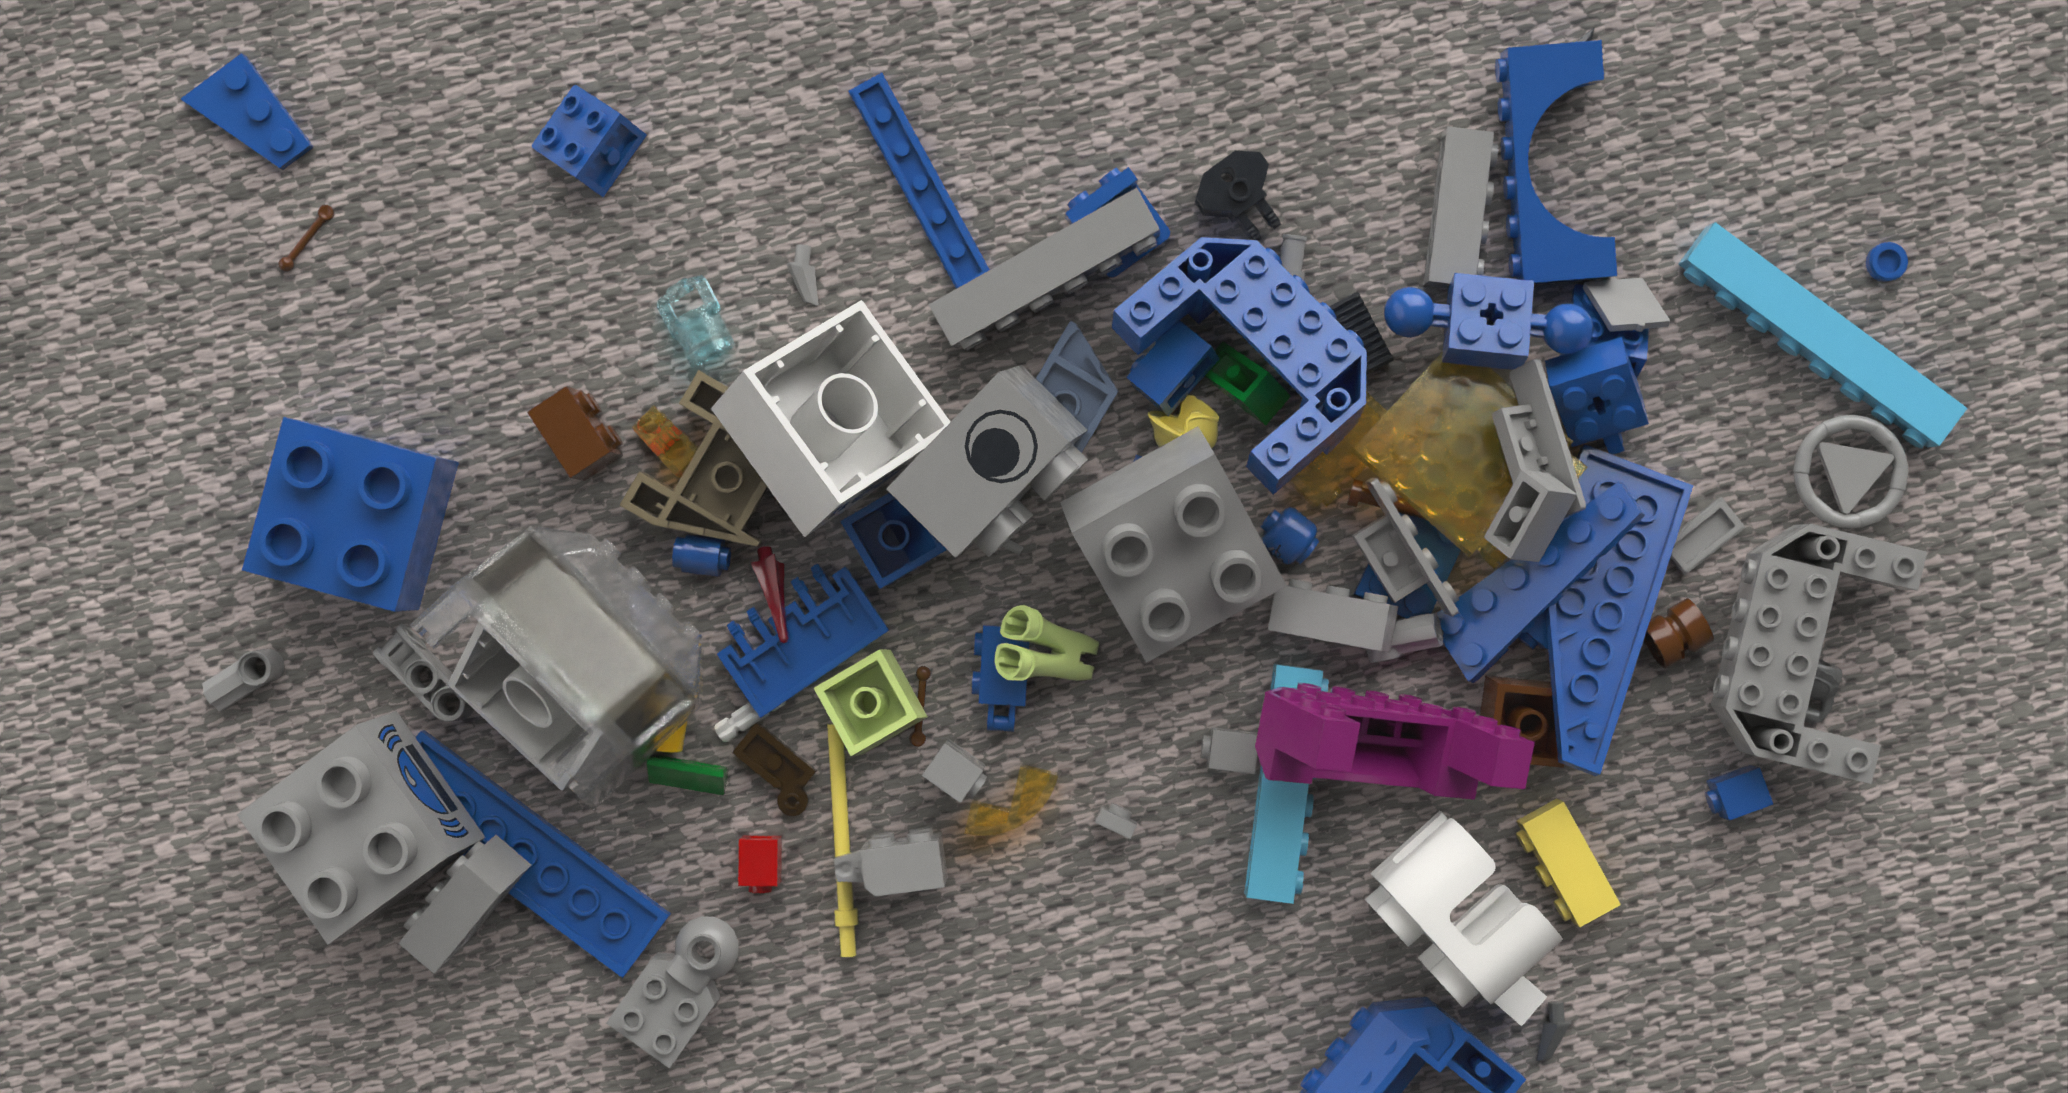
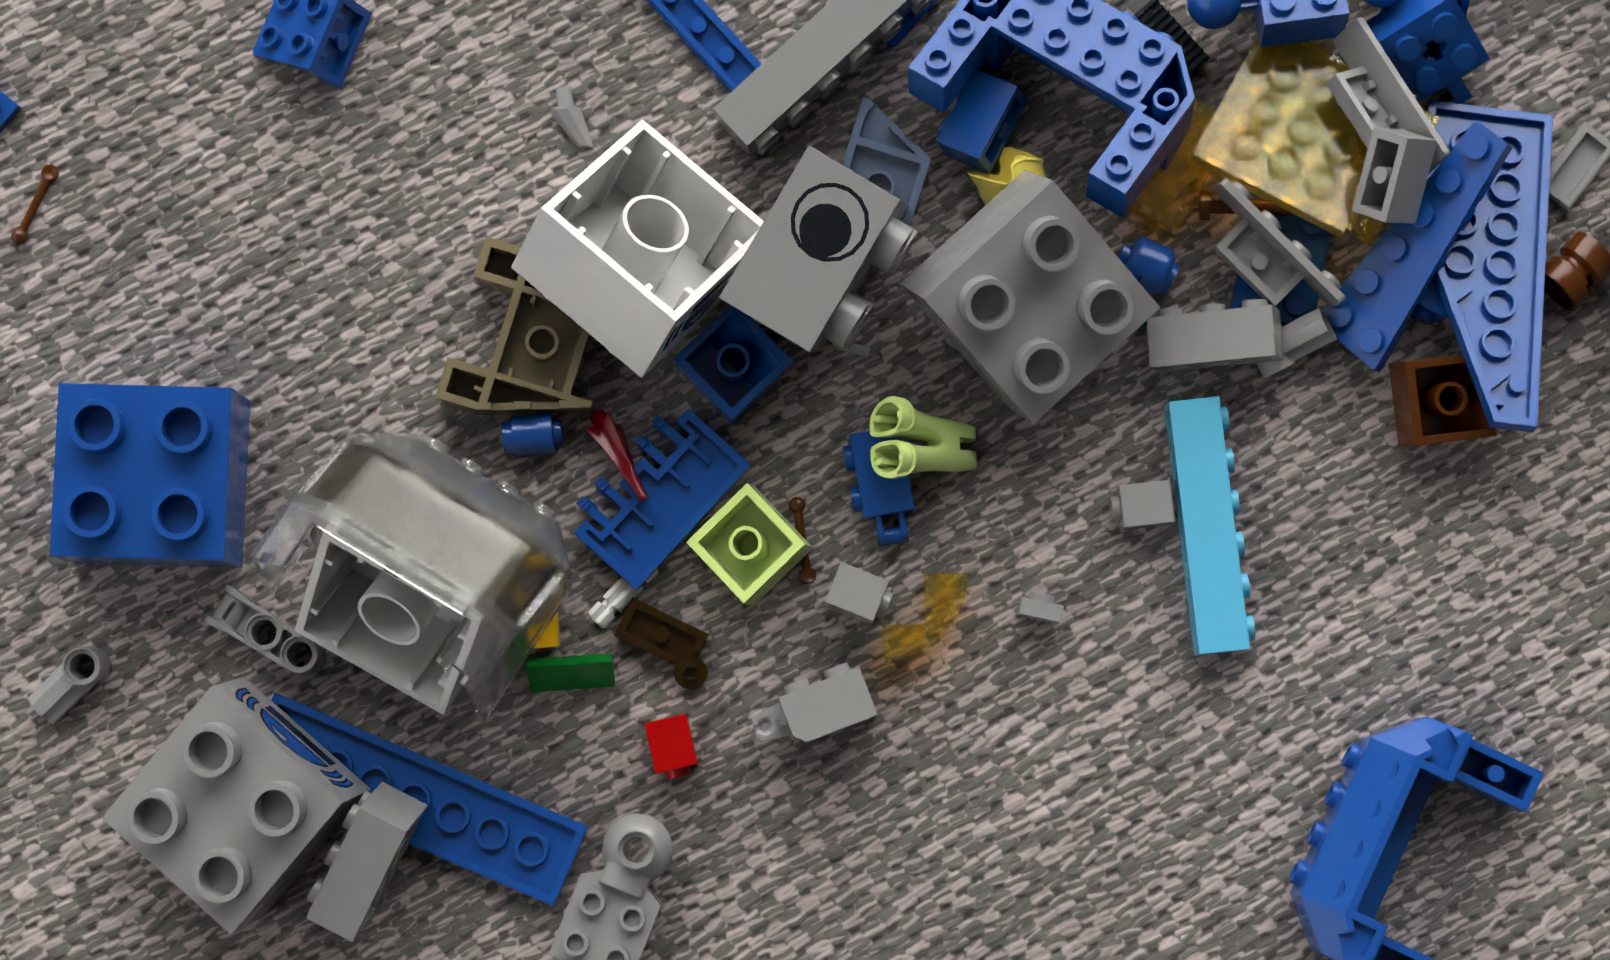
camera: 15 degrees left, 5 degrees down
(576, 433) = (365, 330): reddish brown brick -> none
(666, 440) = (467, 322): clear yellow leg -> none
(701, 330) = (474, 199): clear light blue piece -> none
(845, 916) = (777, 782): light yellow bar -> none
(1247, 384) = (1064, 120): green slope -> none
(1386, 742) = (1308, 448): magenta wedge -> none
(1489, 942) = (1381, 608): white piece -> none
(1521, 1000) = (1504, 689): white brick -> none
(1553, 1030) = (1558, 721): dark grey bar -> none
(1566, 863) = (1525, 539): light yellow brick -> none

